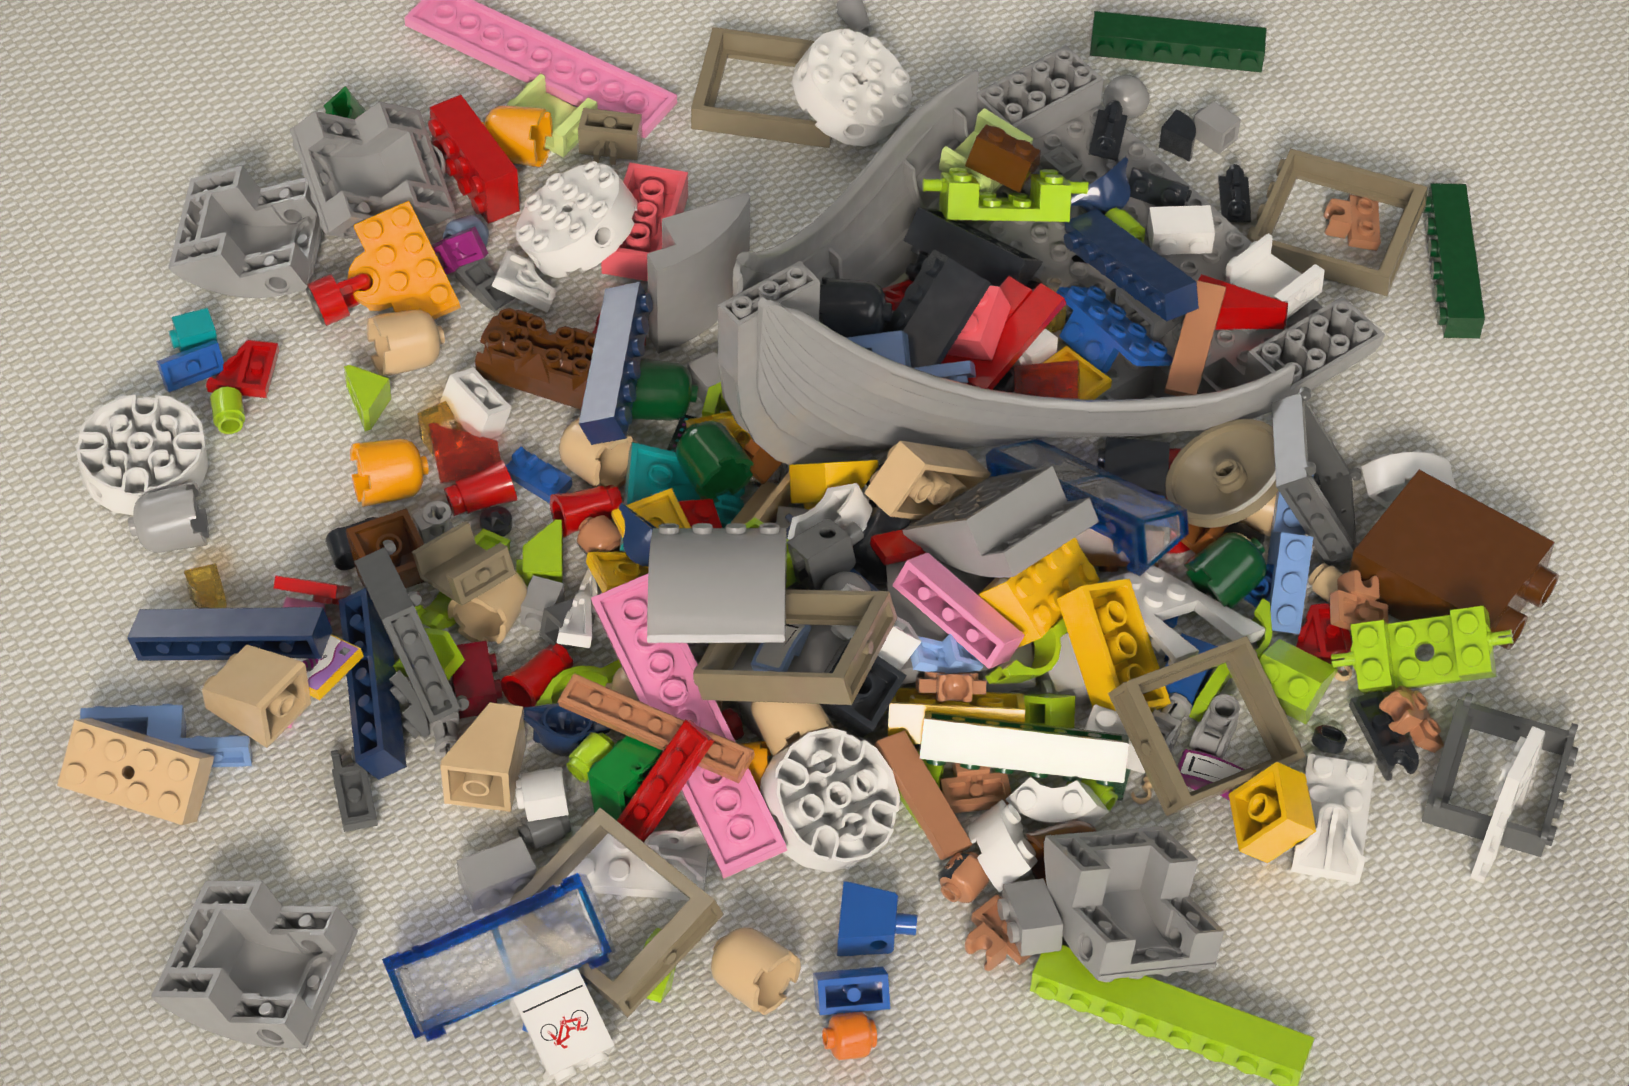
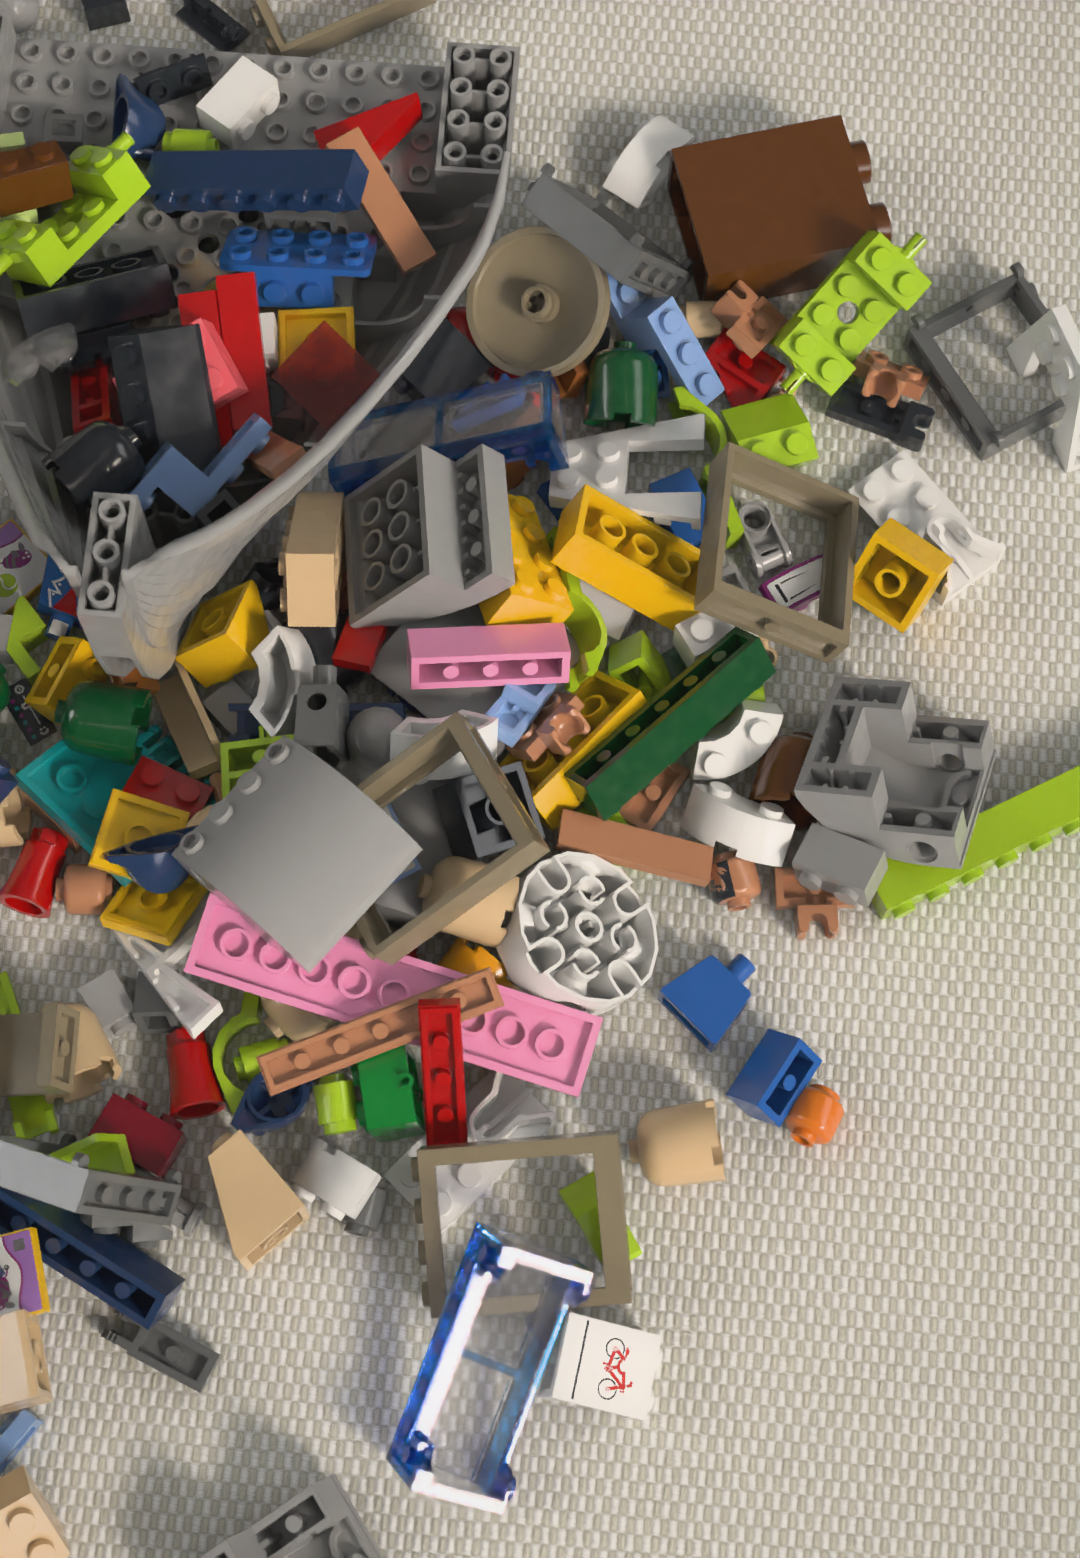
camera: 50 degrees left, 20 degrees up
(495, 873) = (379, 1290): light grey brick -> none
(543, 555) = (60, 960): lime slope -> none
(902, 247) = (45, 348): none -> clear slope
(1108, 131) = (66, 61): black hinge -> none
(1265, 274) = (363, 79): white panel -> none
(1329, 739) = (848, 461): black tile -> none

